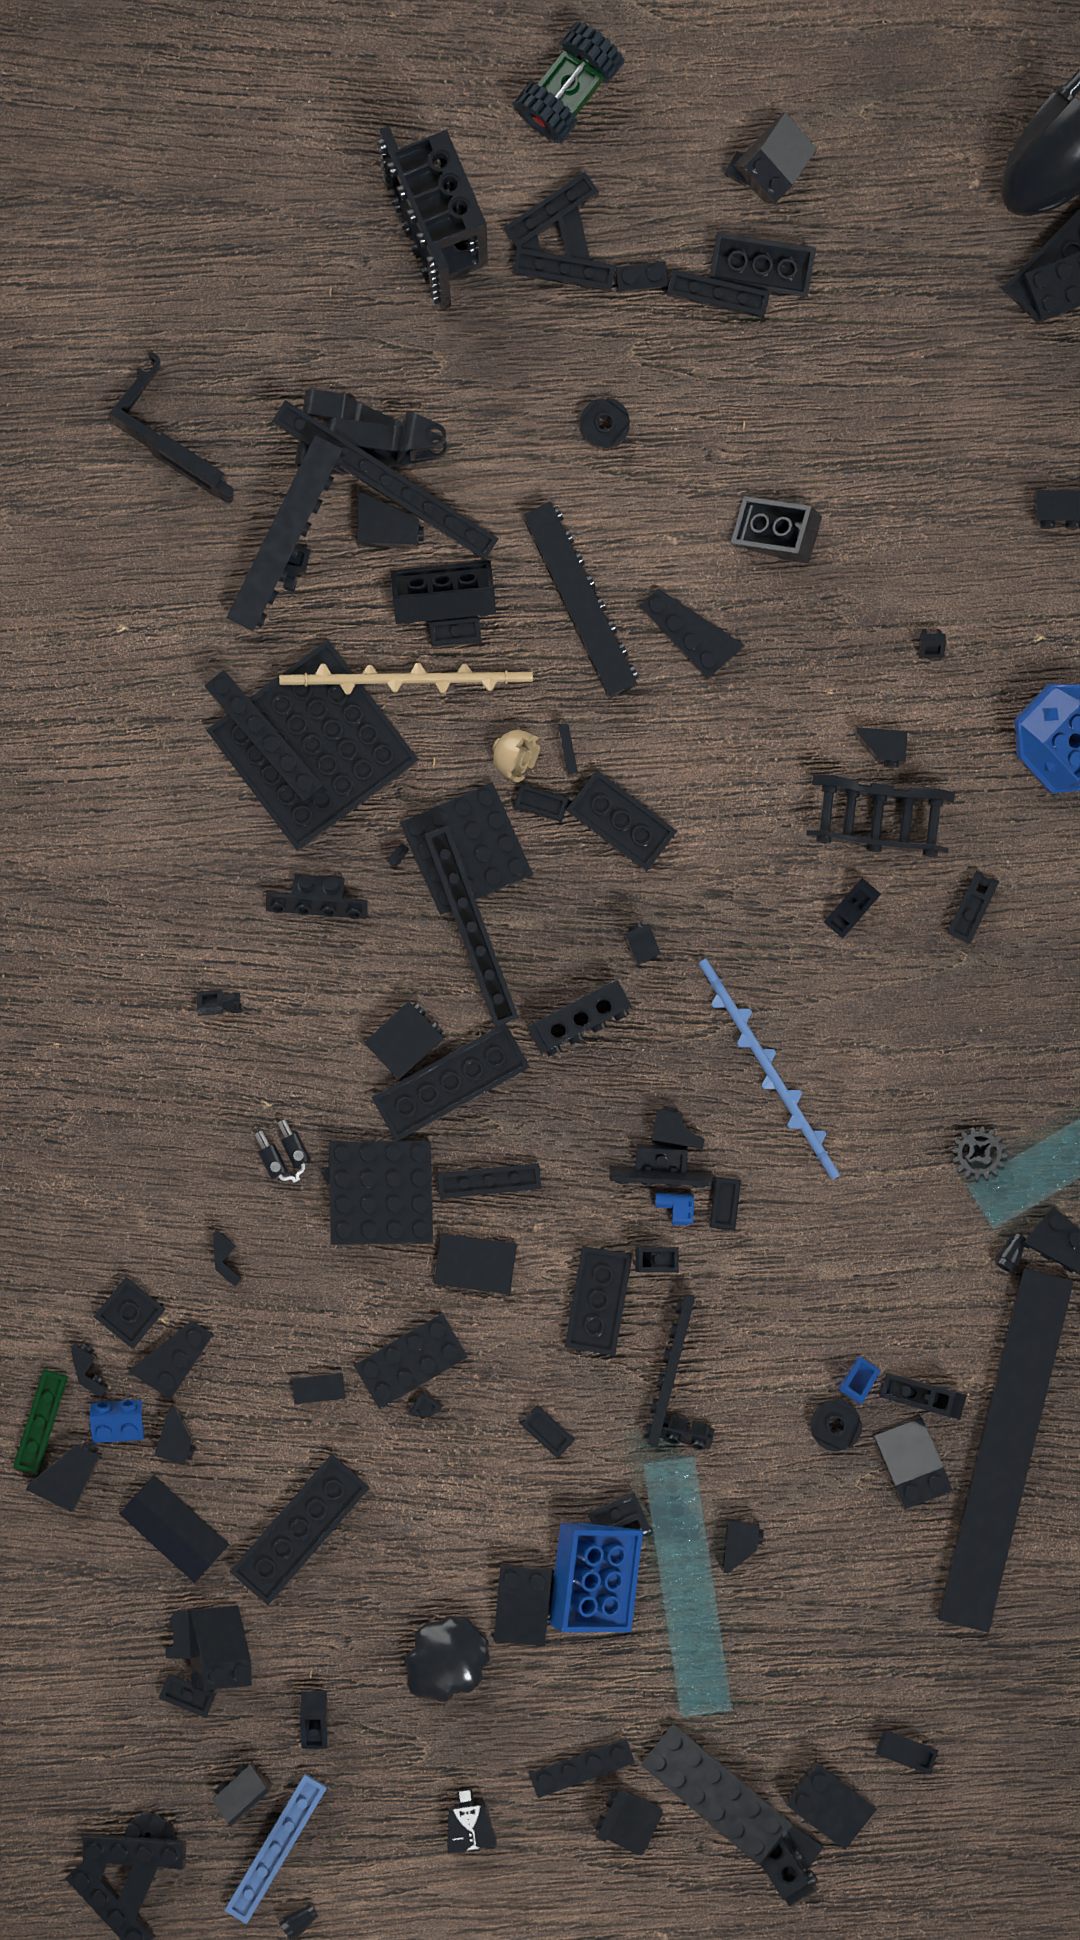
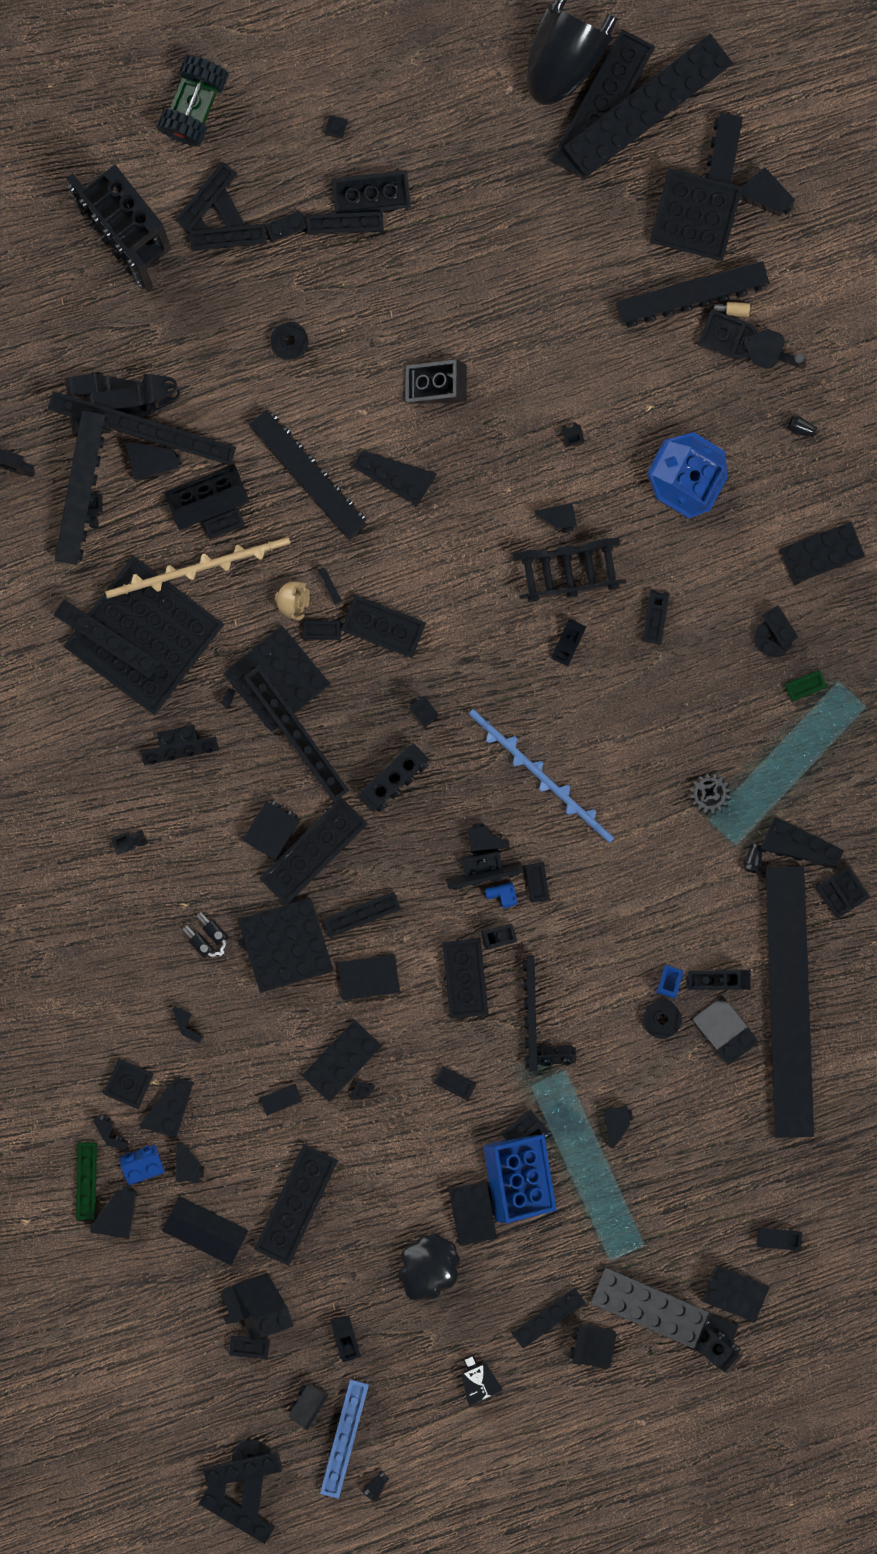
camera: 10 degrees left, 0 degrees up
(776, 159) = (359, 113): black slope -> none

